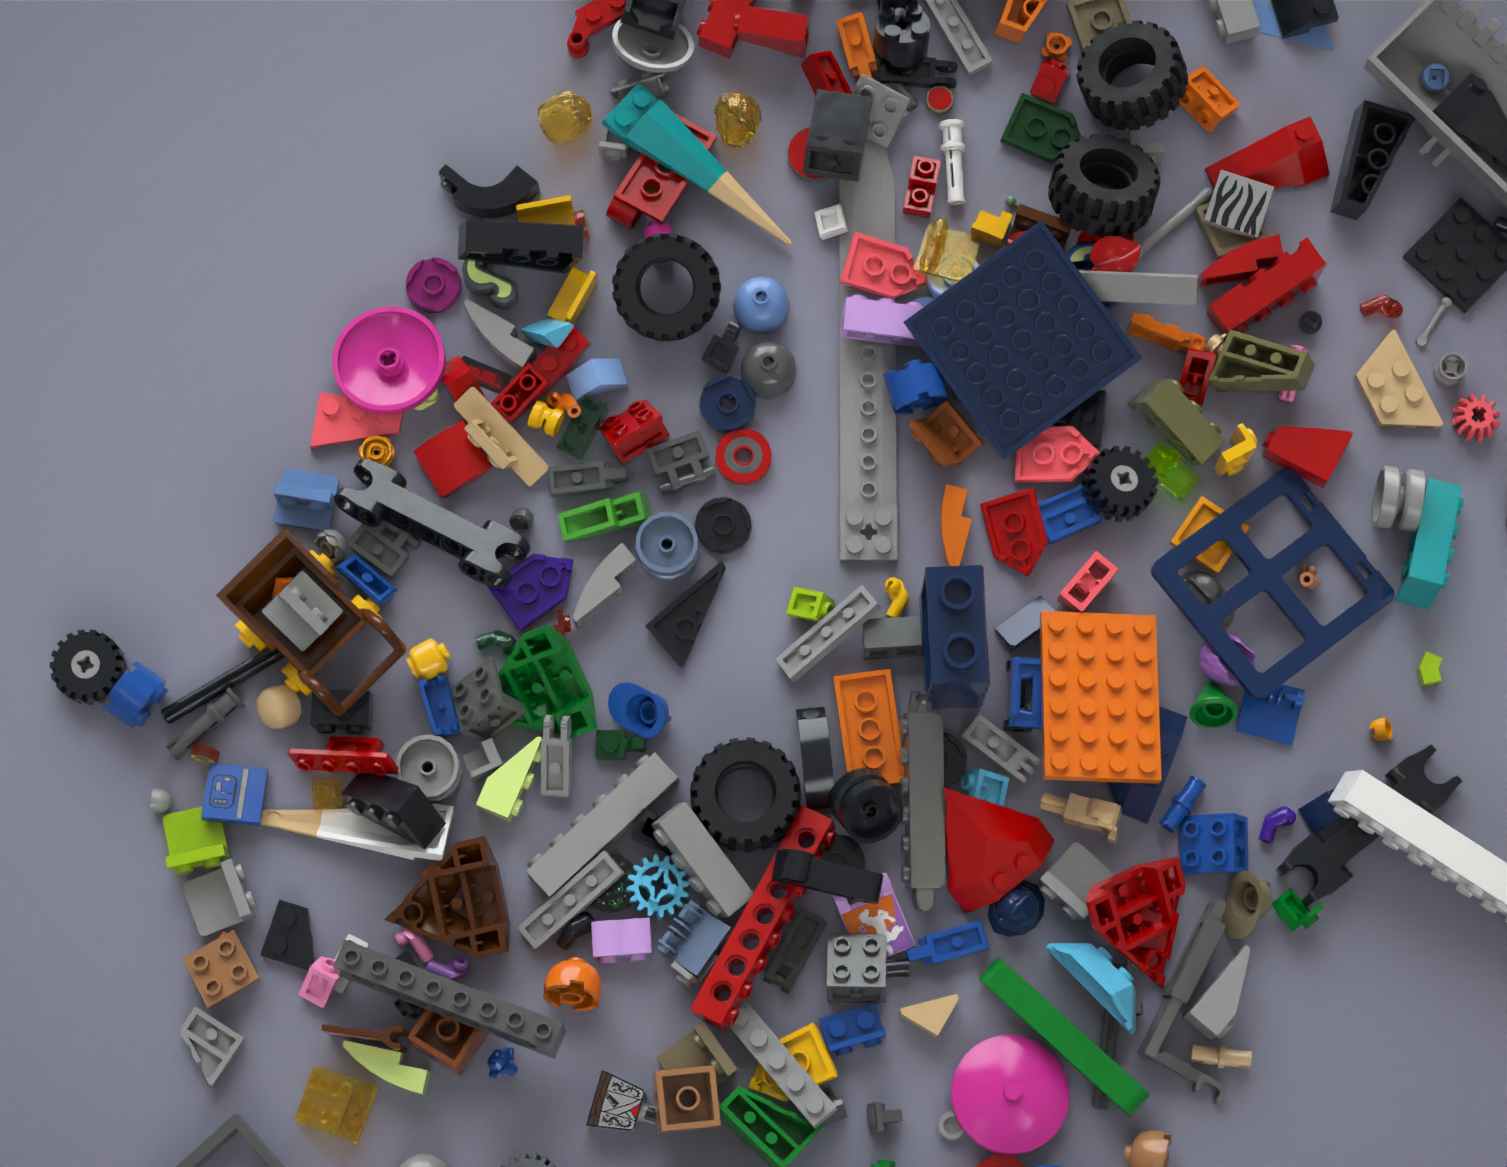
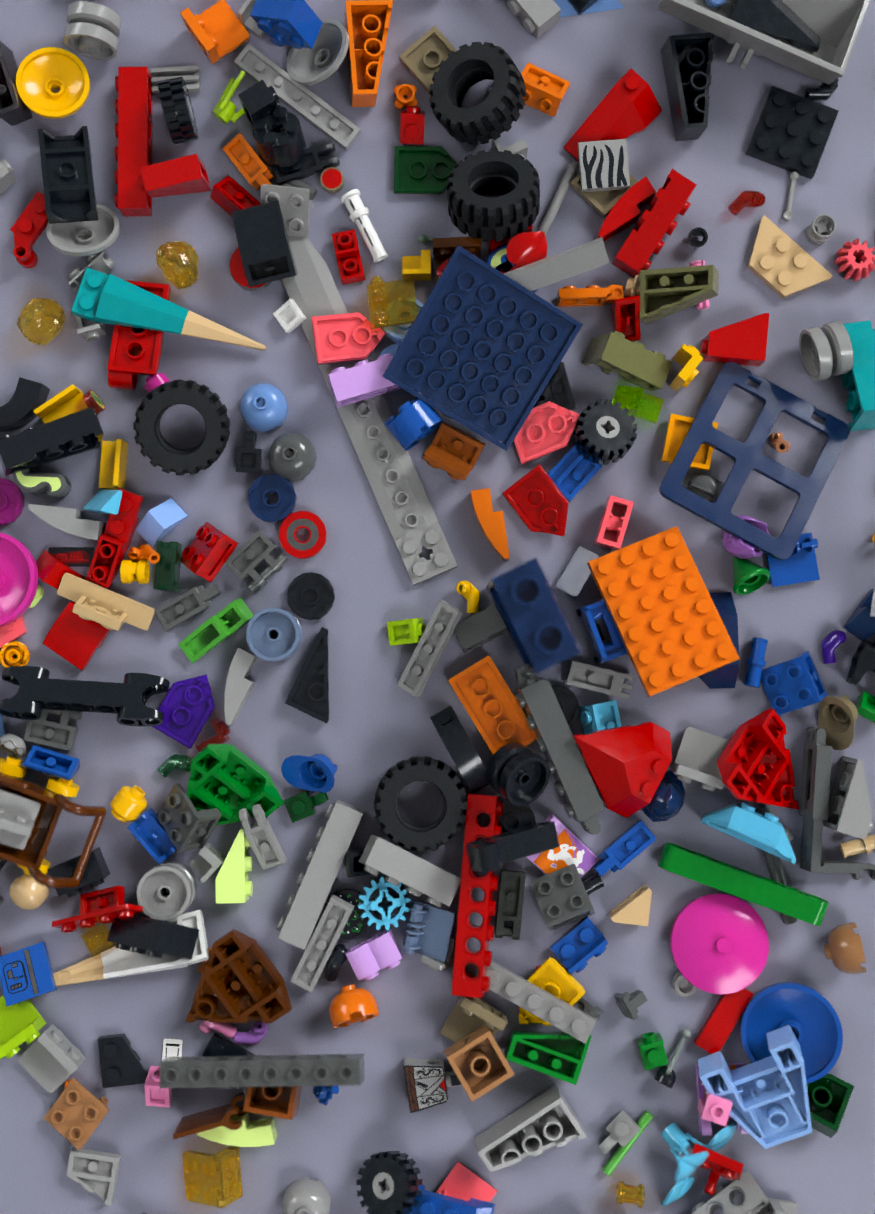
camera: 25 degrees left, 10 degrees up
(524, 523) = (152, 660): dark grey hinge -> none
(1086, 813) = (685, 702): tan piece -> none

